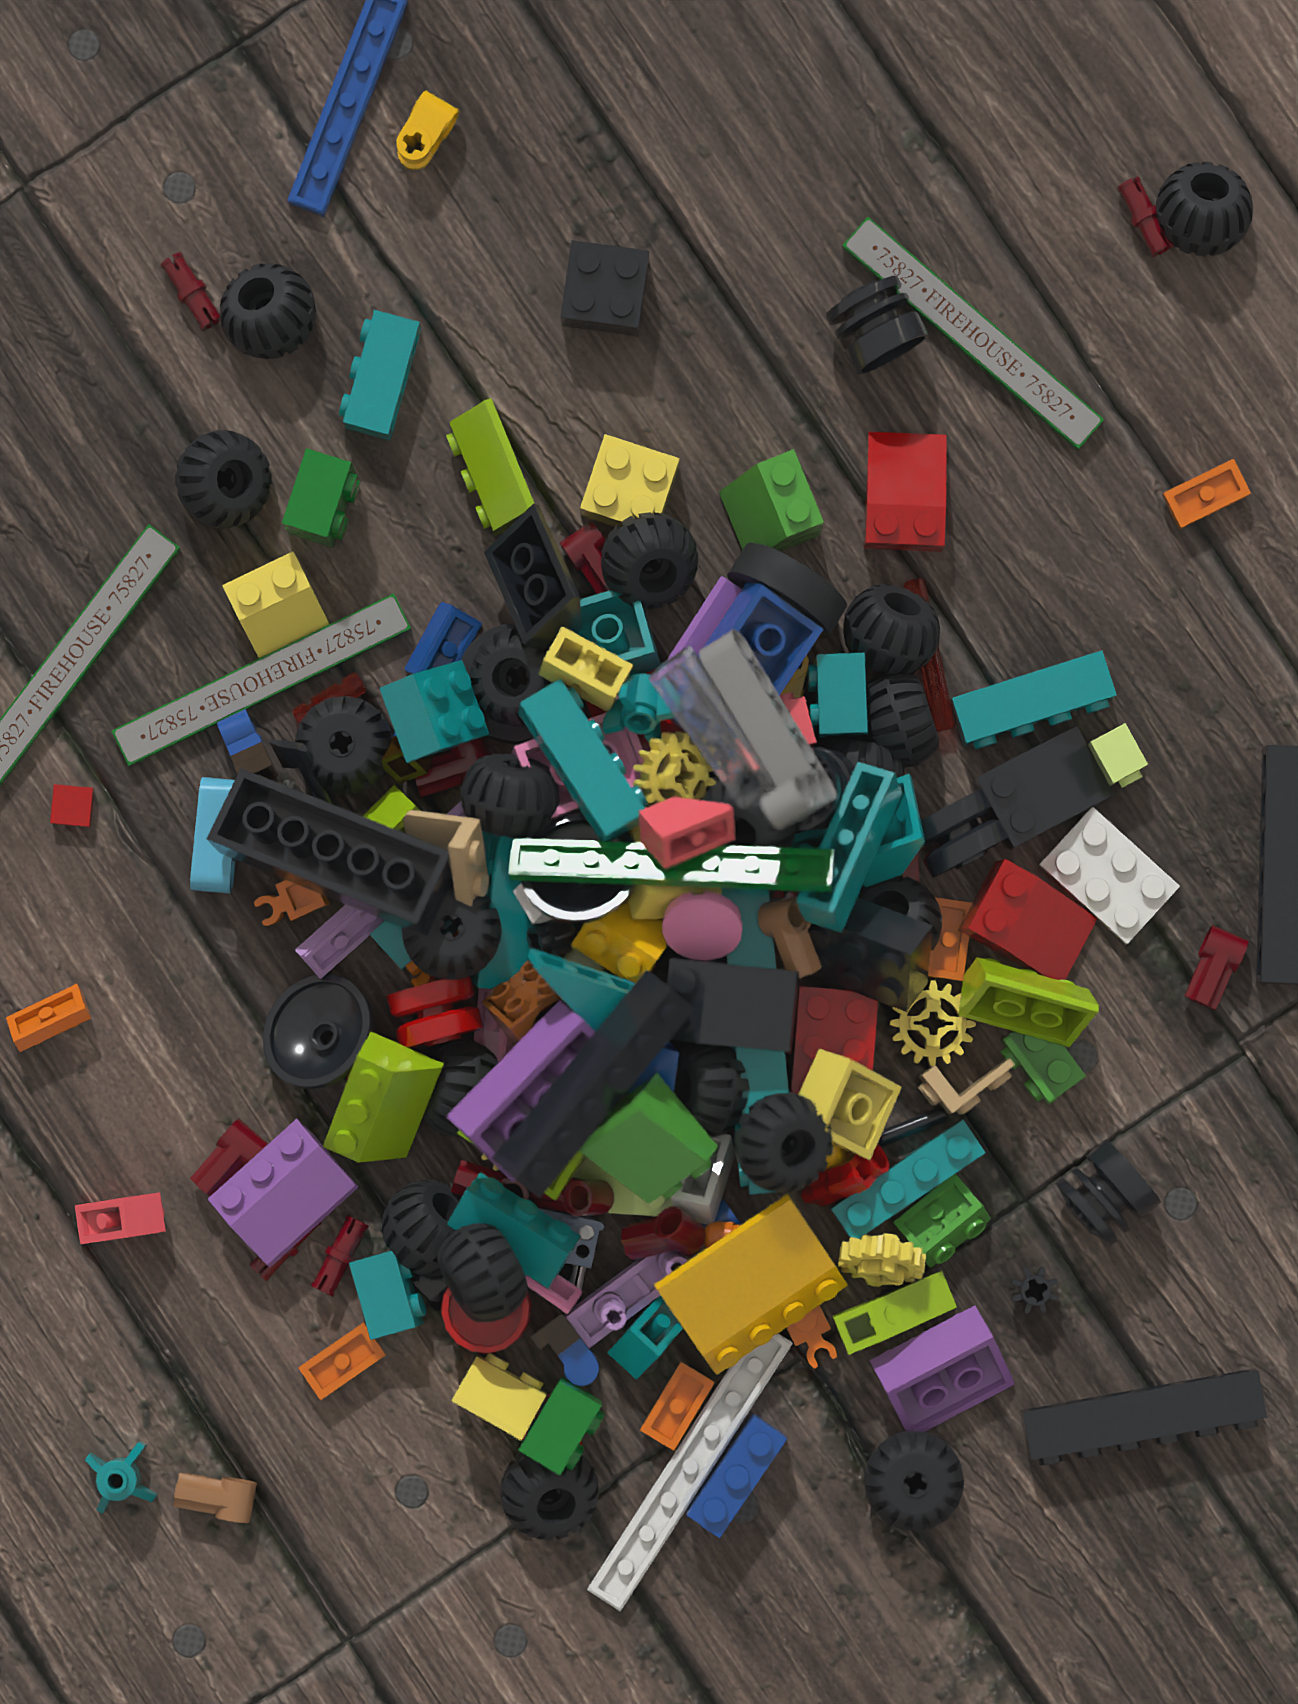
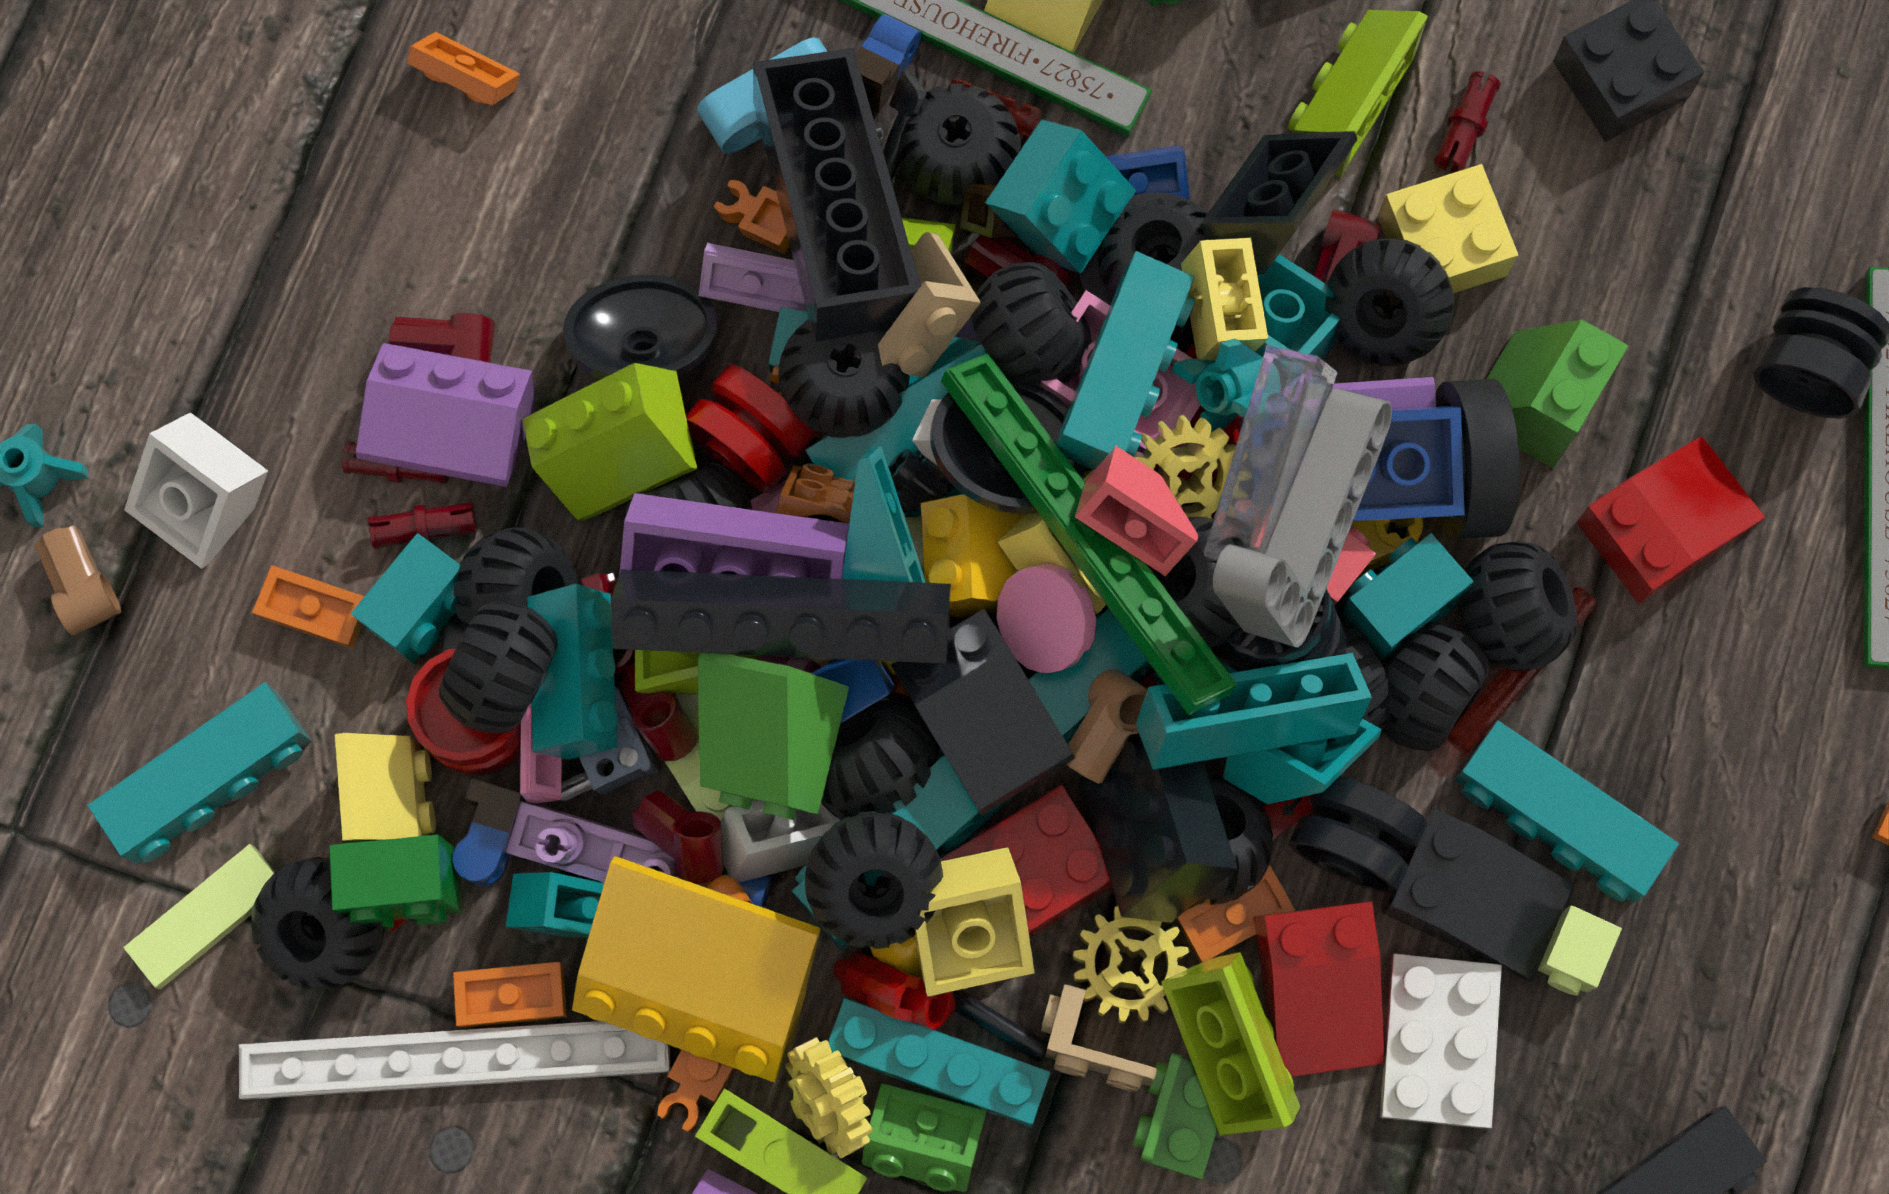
camera: 55 degrees right, 10 degrees down
(120, 1218) = (307, 281): coral slope -> none
(210, 1382) = (194, 488): none -> white slope
(401, 1501) = (200, 775): none -> teal brick
(490, 1559) = (200, 918): none -> yellowish green tile
(563, 413) = (1467, 122): none -> dark red pin
(736, 1475) = (476, 1114): blue brick -> none

